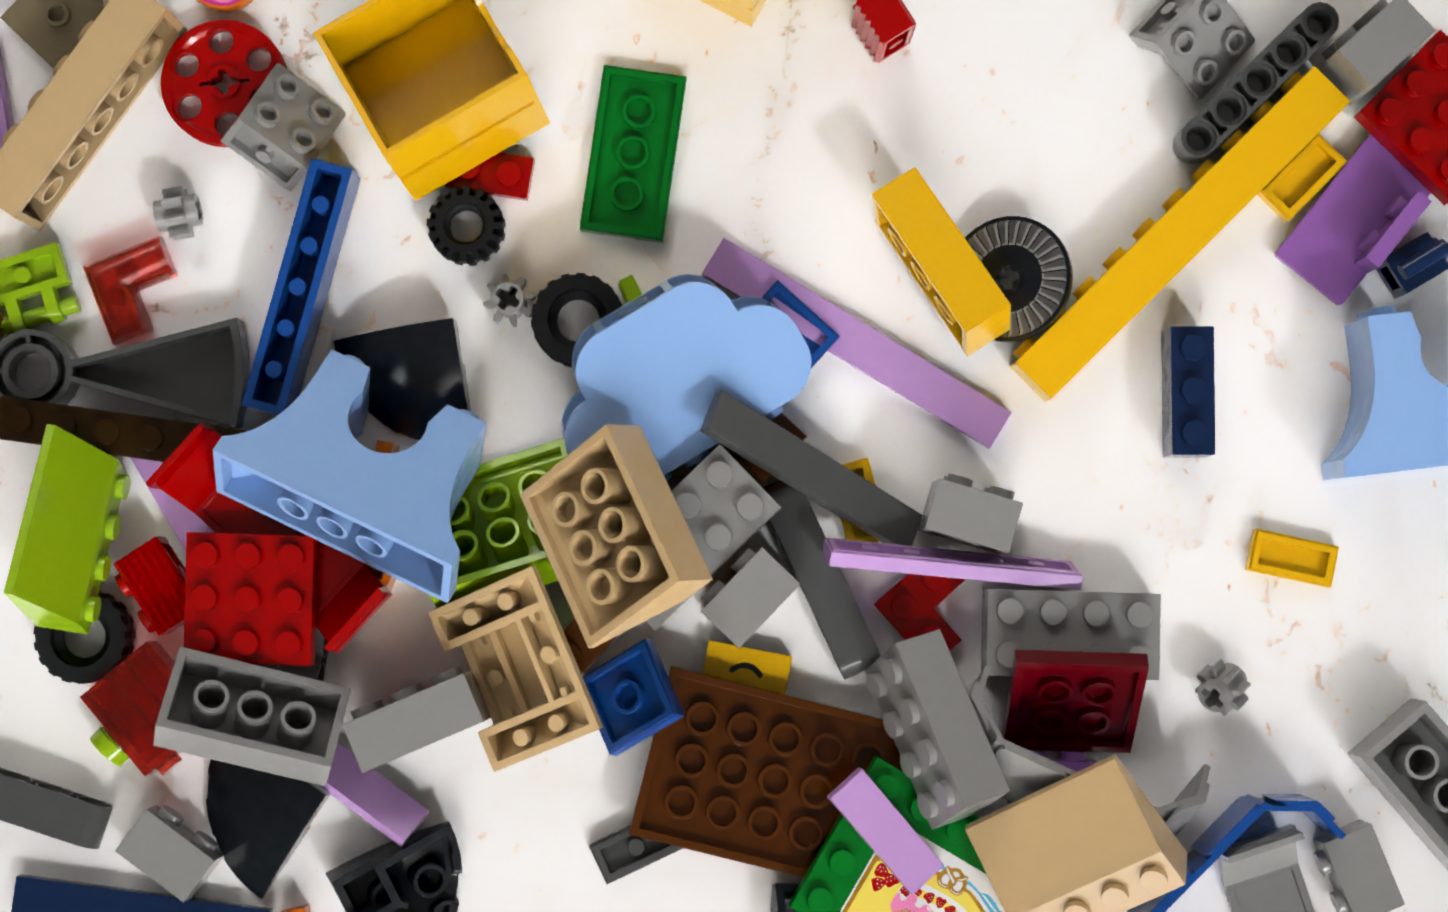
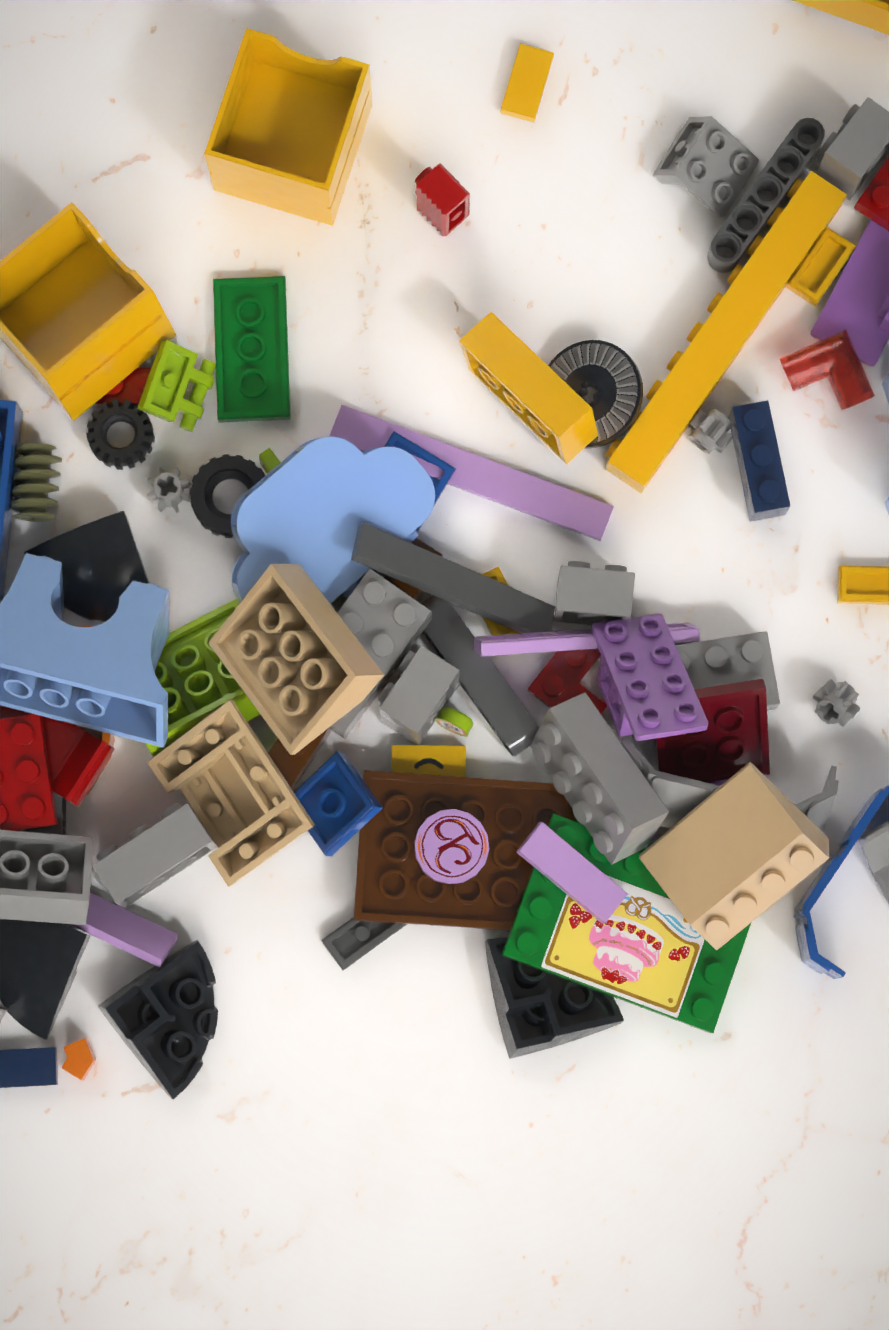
camera: 15 degrees left, 5 degrees down
(359, 265) = (34, 482): none -> olive piece
(530, 178) = (168, 382): none -> lime plate
(754, 773) = (451, 846): none -> lavender tile
(785, 627) = (454, 721): none -> lime tile
(1012, 630) = (646, 679): none -> medium lavender bracket
(1139, 347) = (710, 431): none -> light grey gear
(1298, 291) = (834, 359): none -> clear red brick

